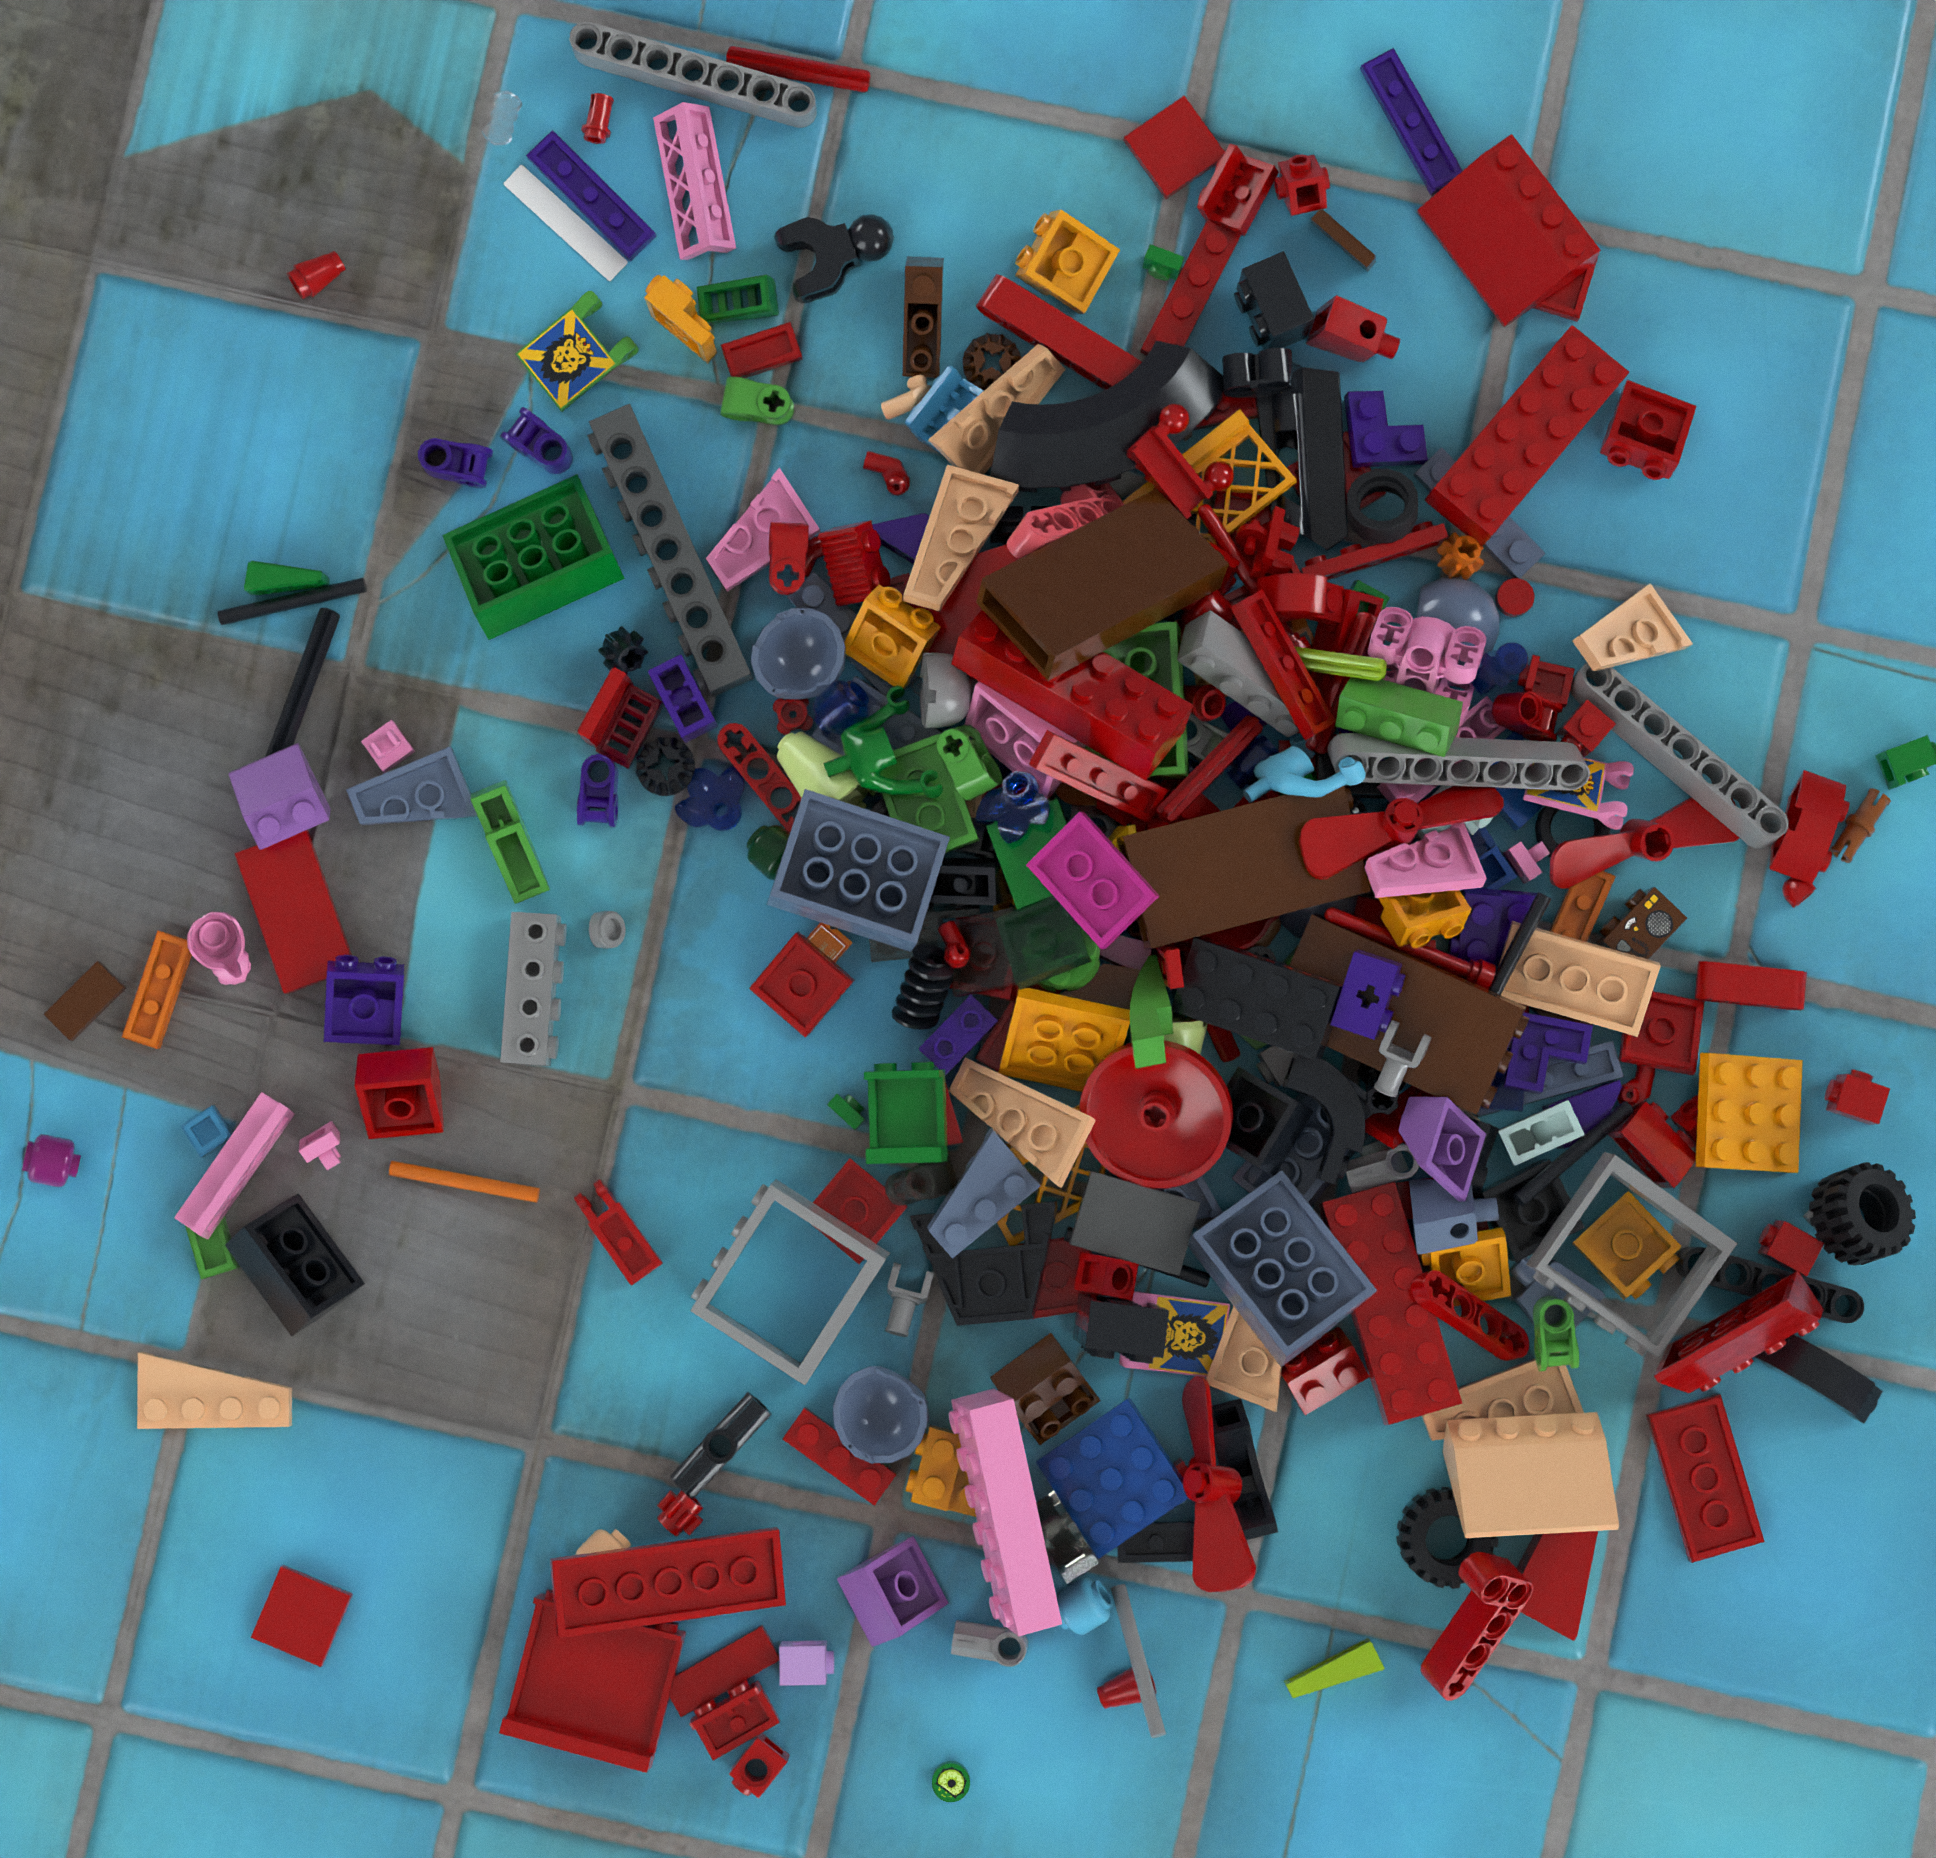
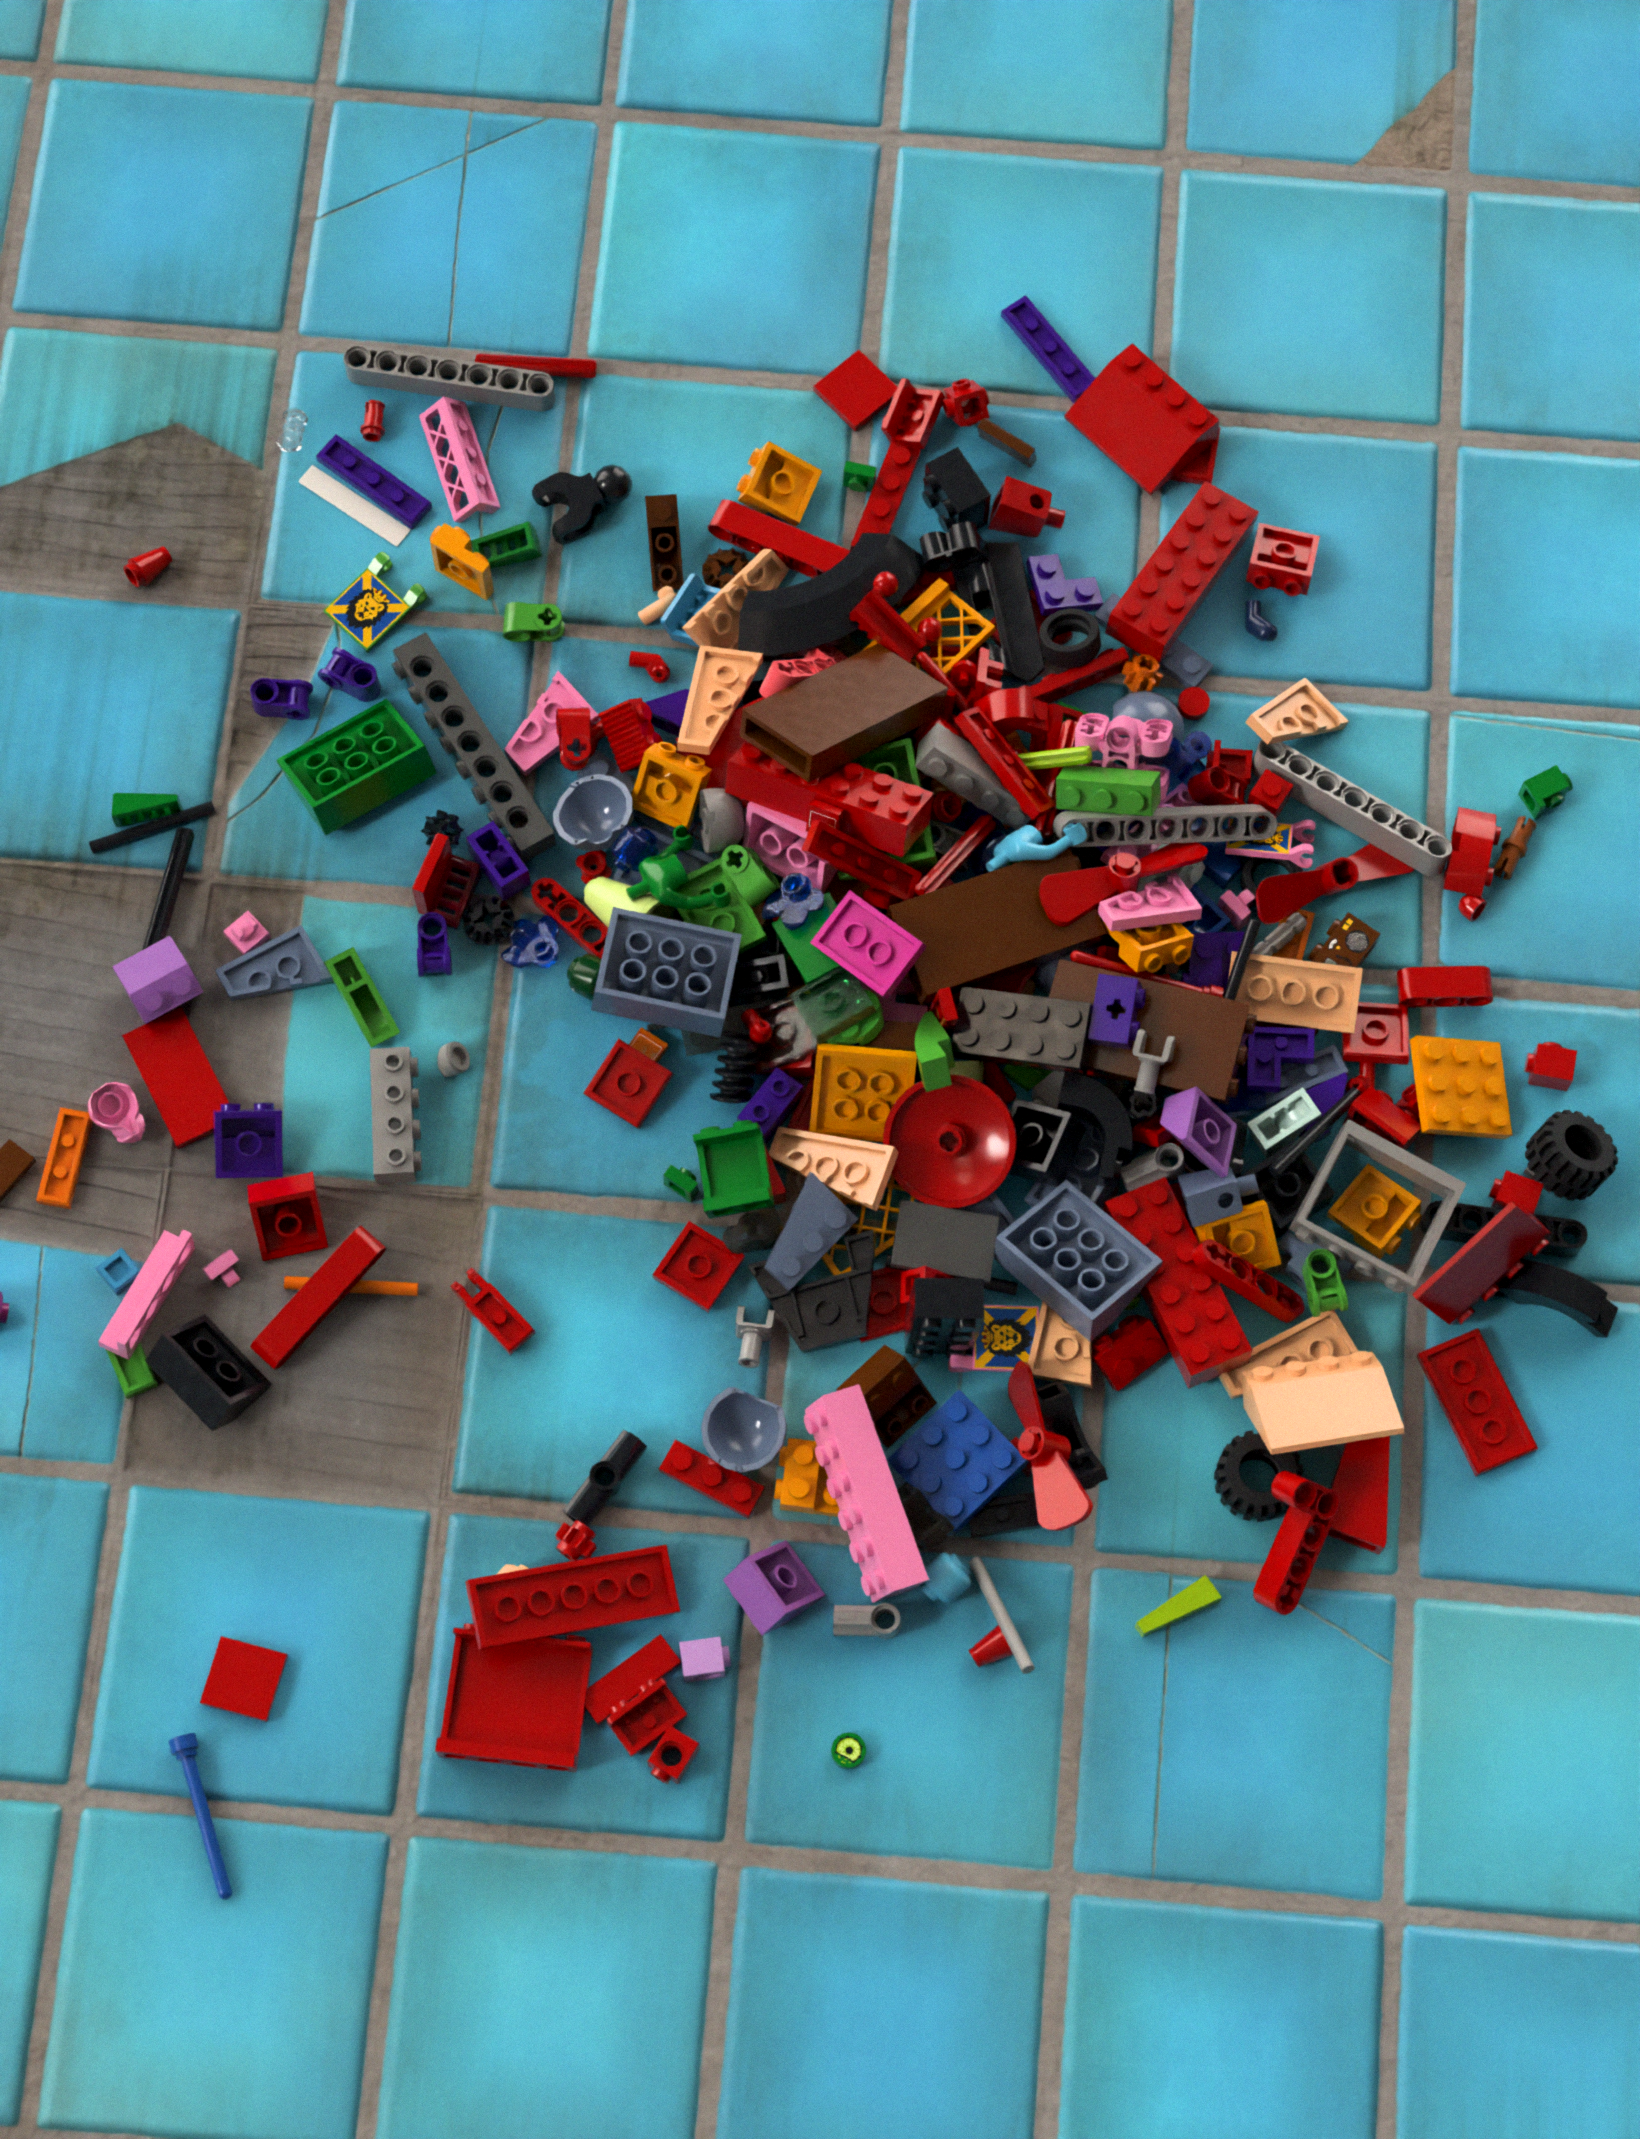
camera: 10 degrees left, 15 degrees down
(200, 1397) = (135, 1499): light nougat wing -> none
(229, 1687) = (185, 1750): none -> blue piece
(424, 1197) = (318, 1297): none -> red beam
(743, 1232) = (697, 1351): light grey window -> none
(762, 351) = (532, 583): red tile -> none
(1061, 721) = (825, 813): none -> red tile
(1571, 904) = (1281, 935): none -> light grey axle
(1604, 508) = (1257, 625): none -> dark blue arm

